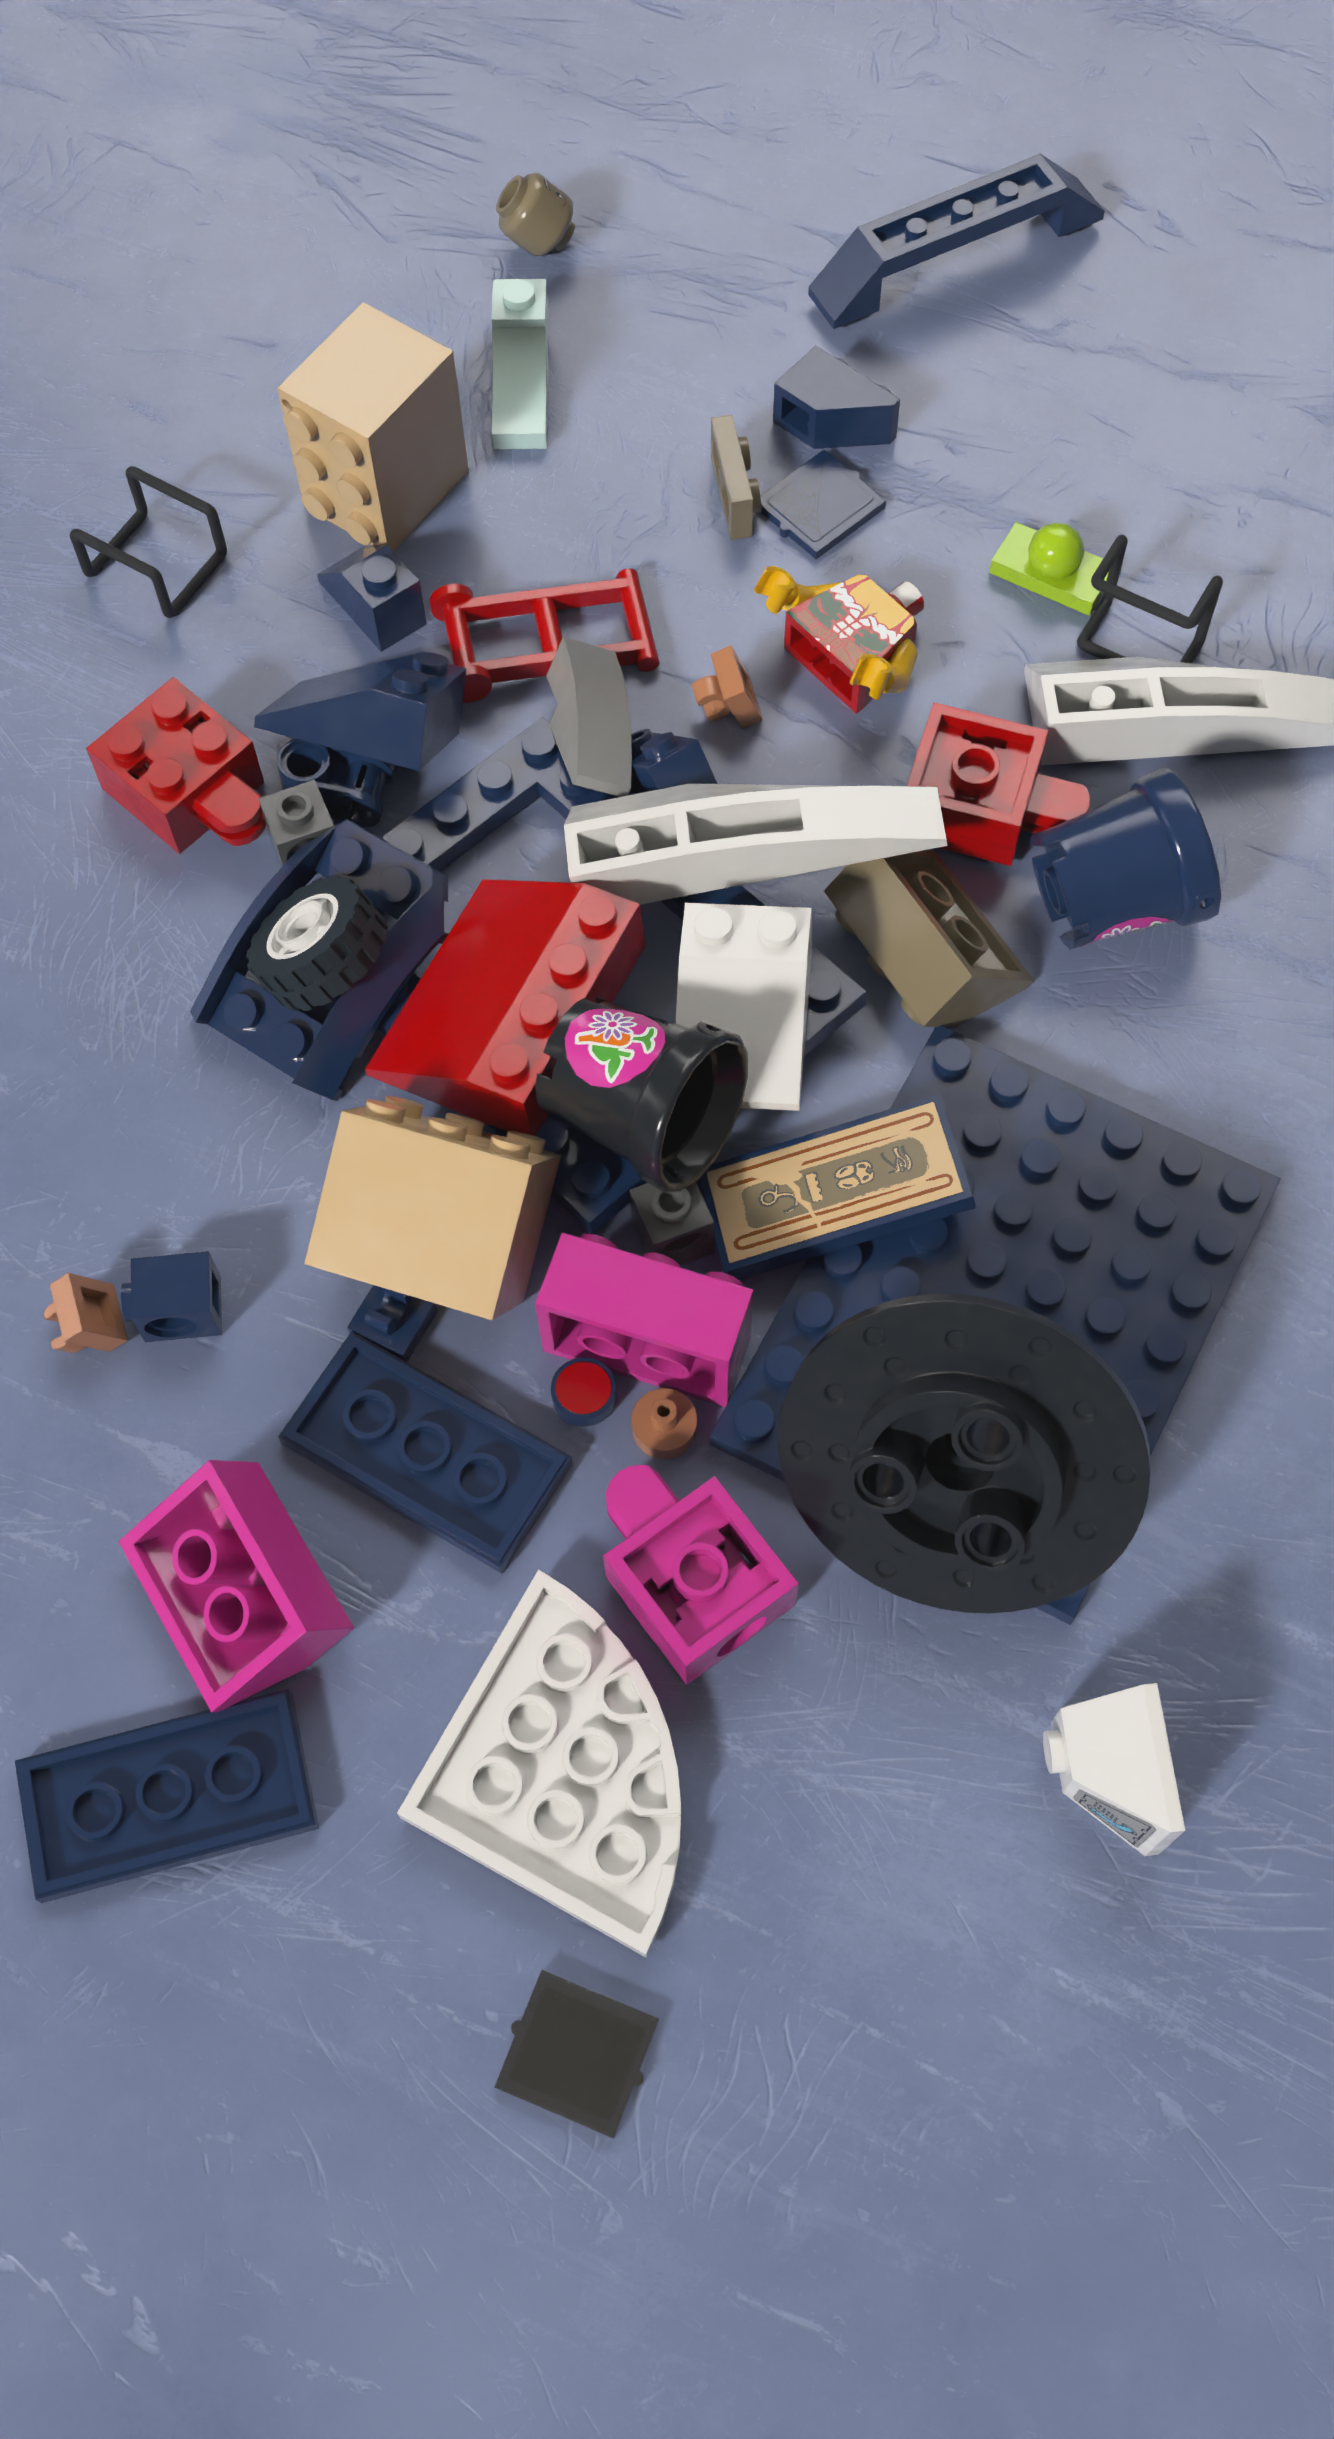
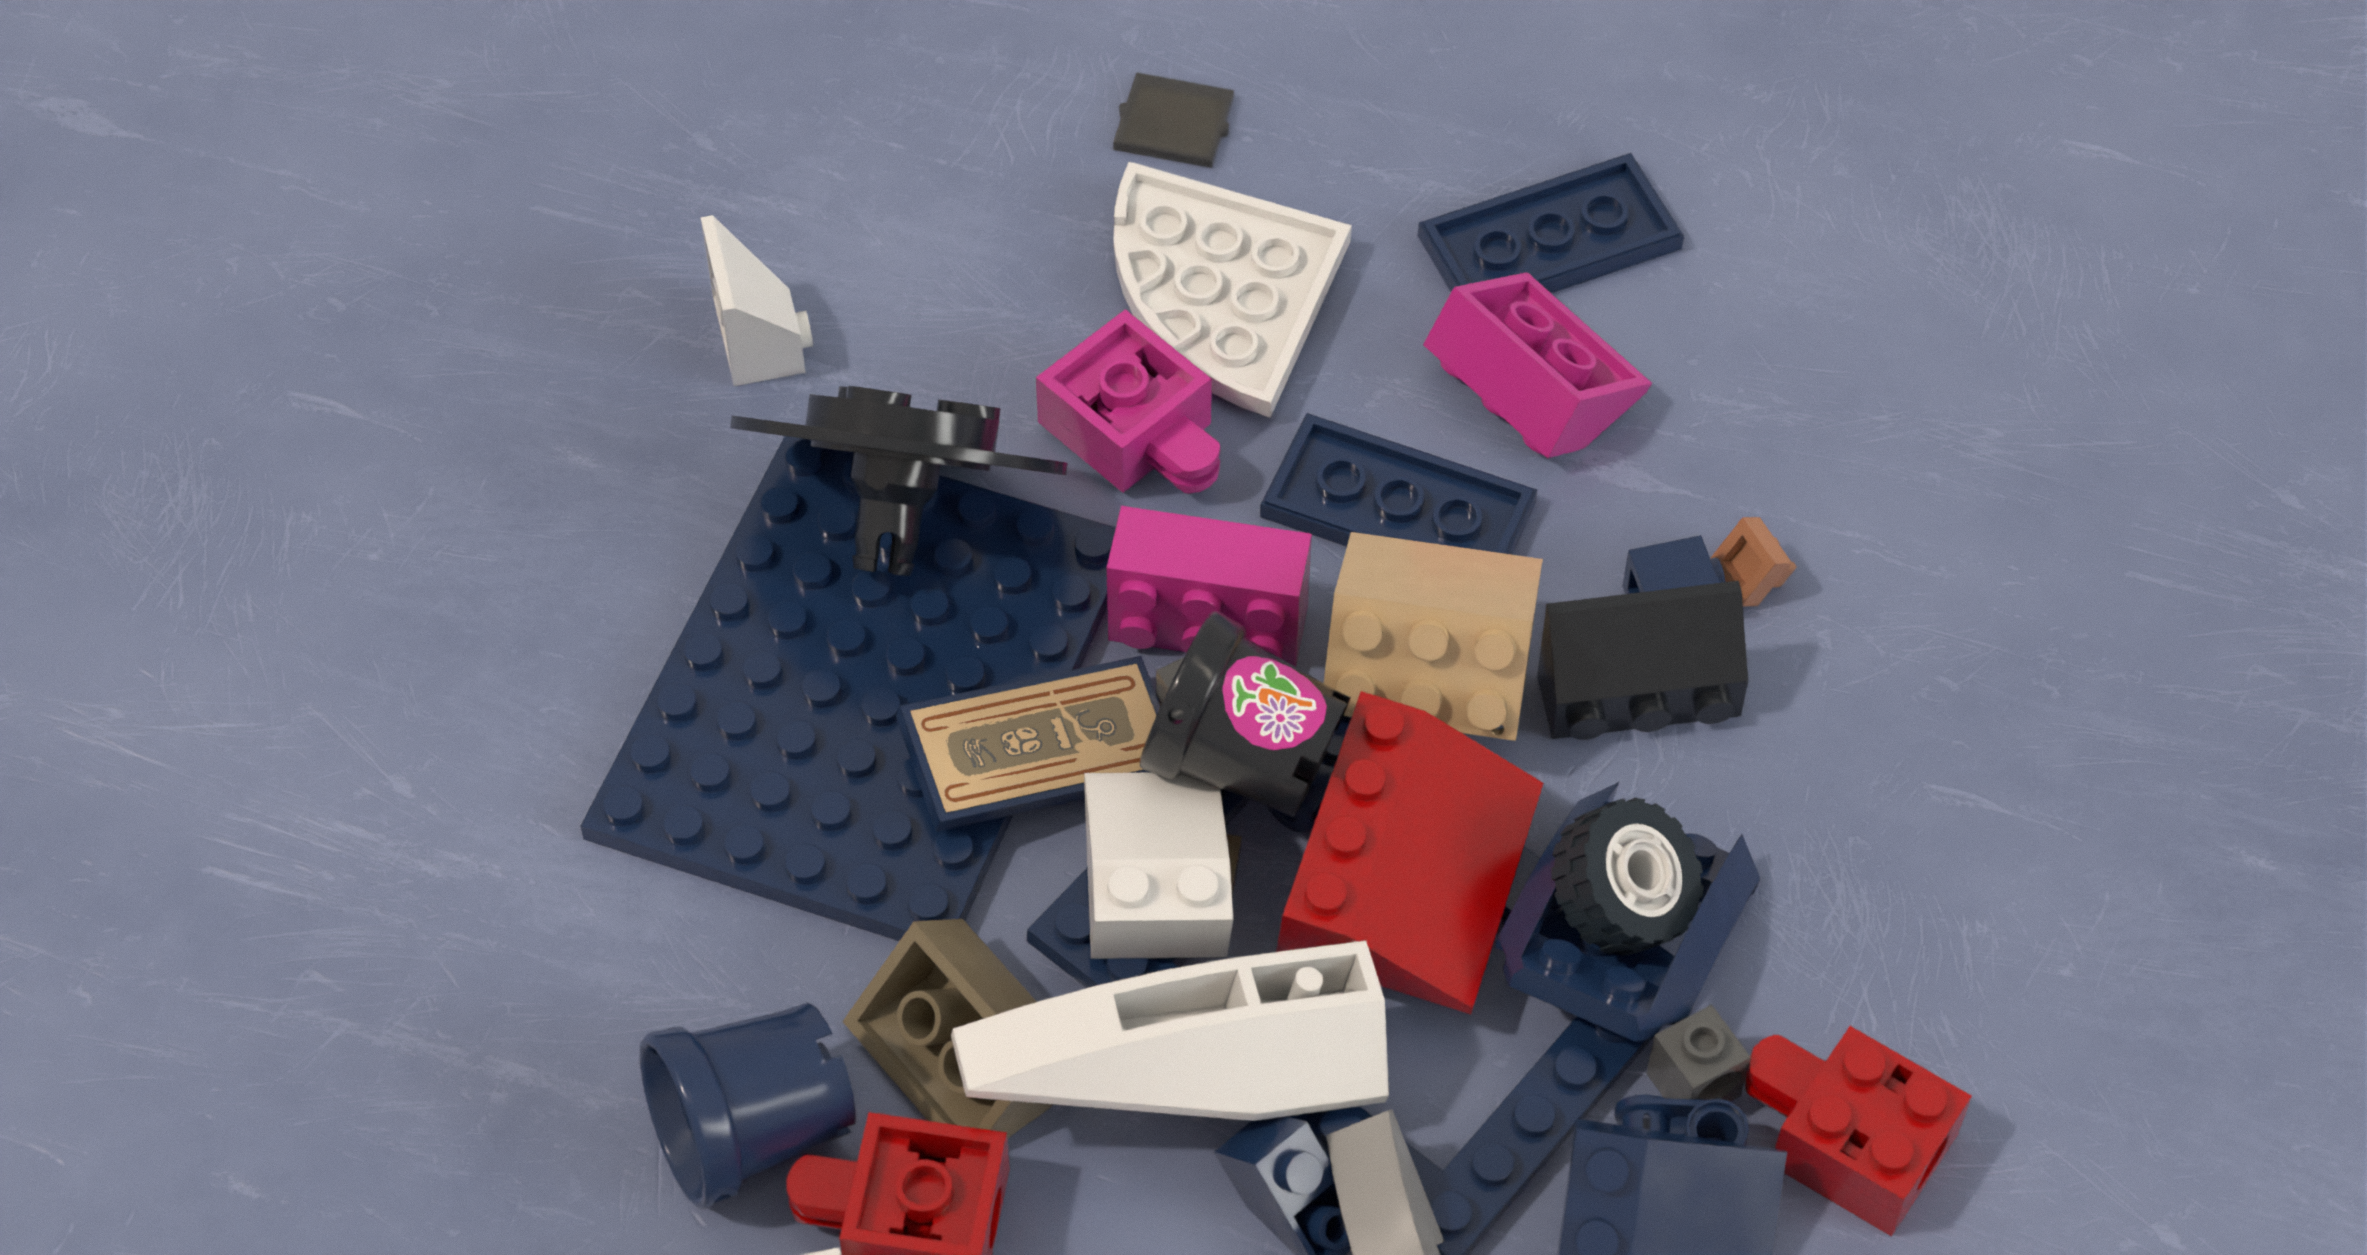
camera: 170 degrees right, 10 degrees down
(225, 1197) = (1643, 660): none -> black slope

